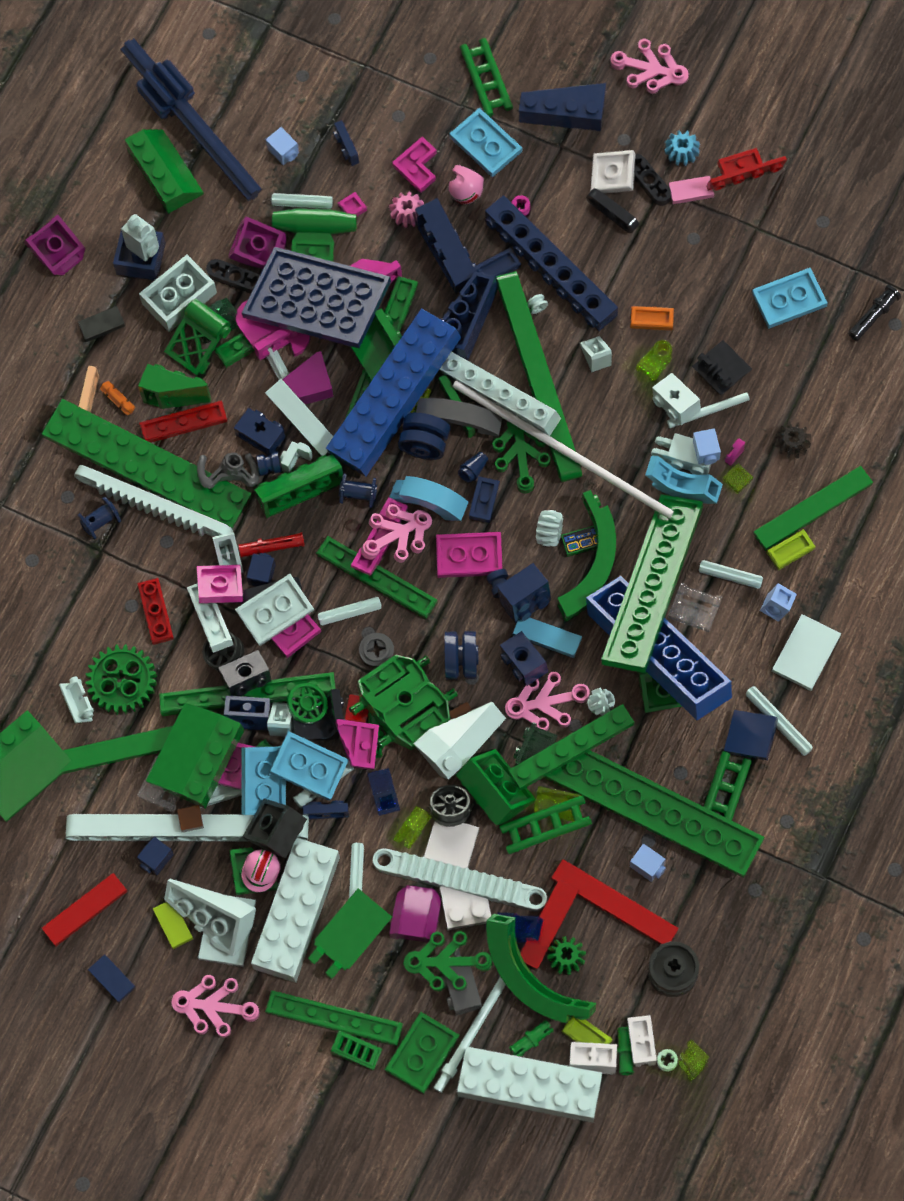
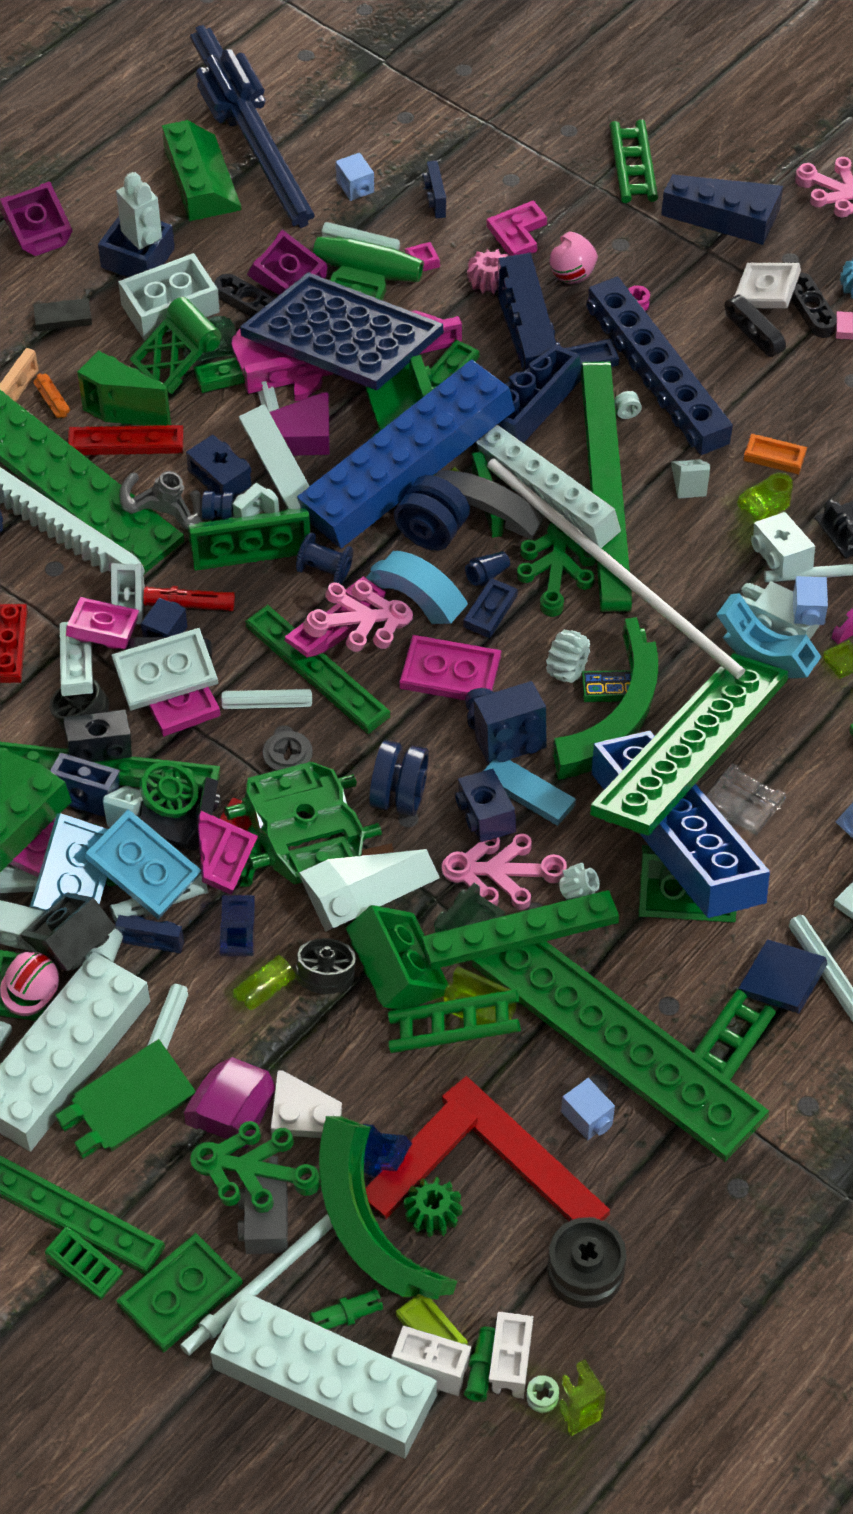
camera: 10 degrees right, 15 degrees down
(452, 844) = (313, 1020): white tile -> none
(461, 879) = (280, 1052): light aqua gear -> none
(485, 142) = (612, 224): medium azure plate -> none
(730, 574) = (805, 770): light aqua axle -> none

